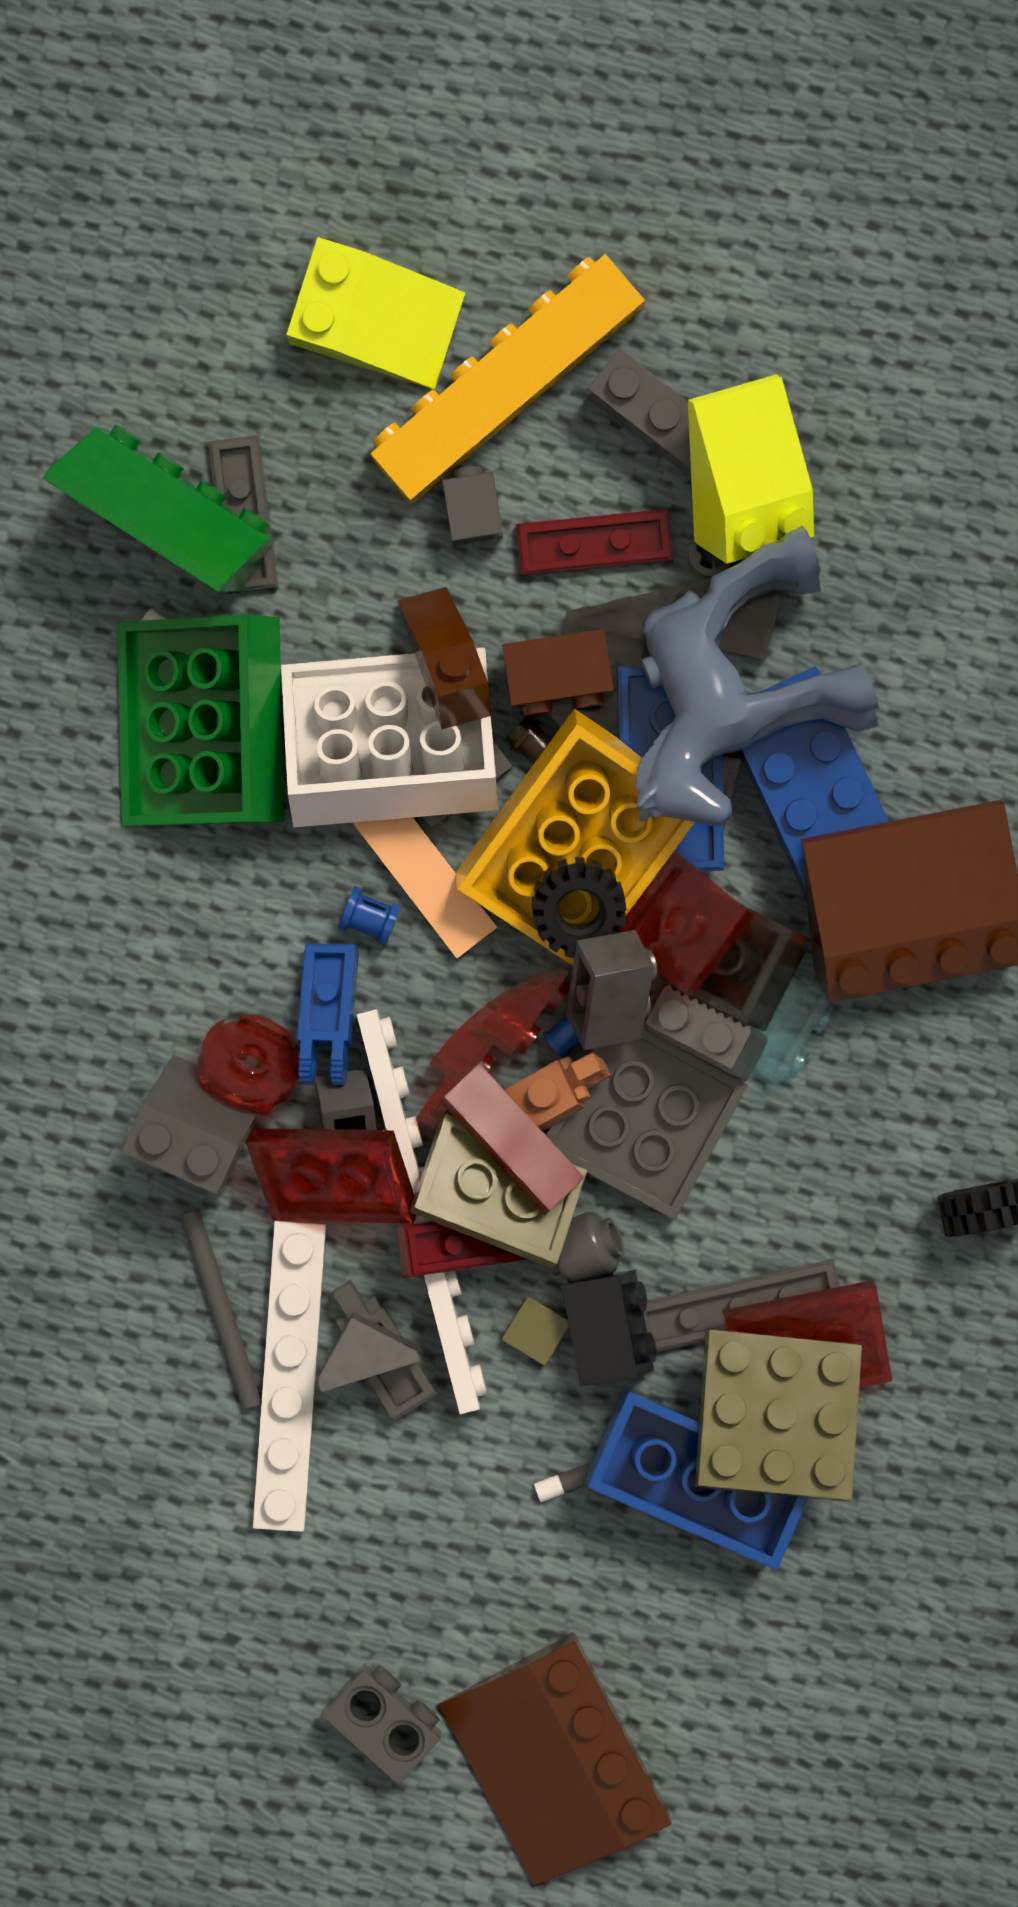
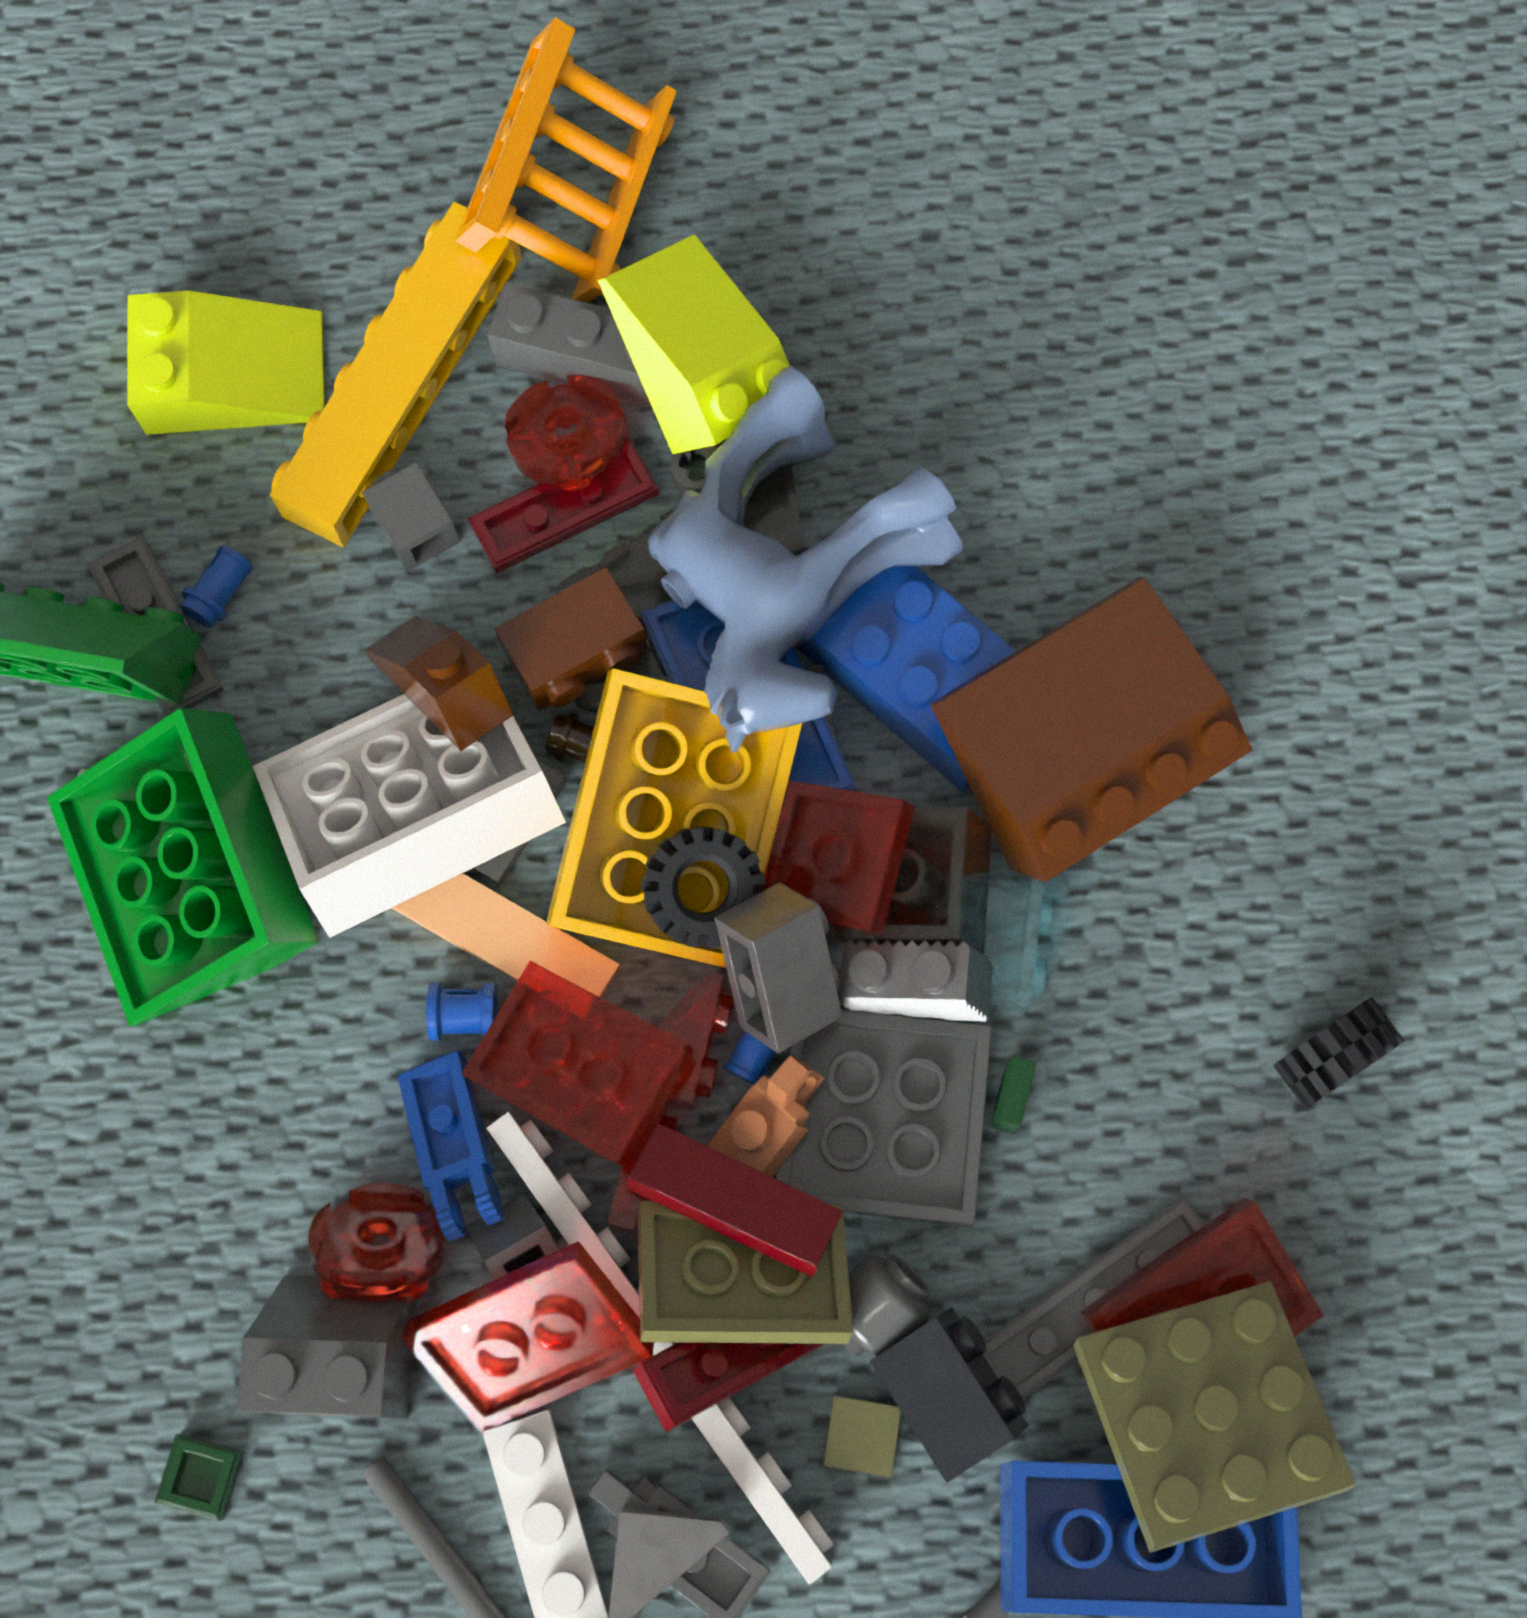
camera: 20 degrees left, 15 degrees down
(67, 1171) = (199, 1477): none -> dark green tile
(301, 503) = (215, 587): none -> blue pin
(439, 995) = (579, 1063): none -> clear red plate
(615, 513) = (573, 457): none -> clear red plate
(663, 246) = (512, 166): none -> light orange fence
(742, 1140) = (1013, 1095): none -> dark green tile

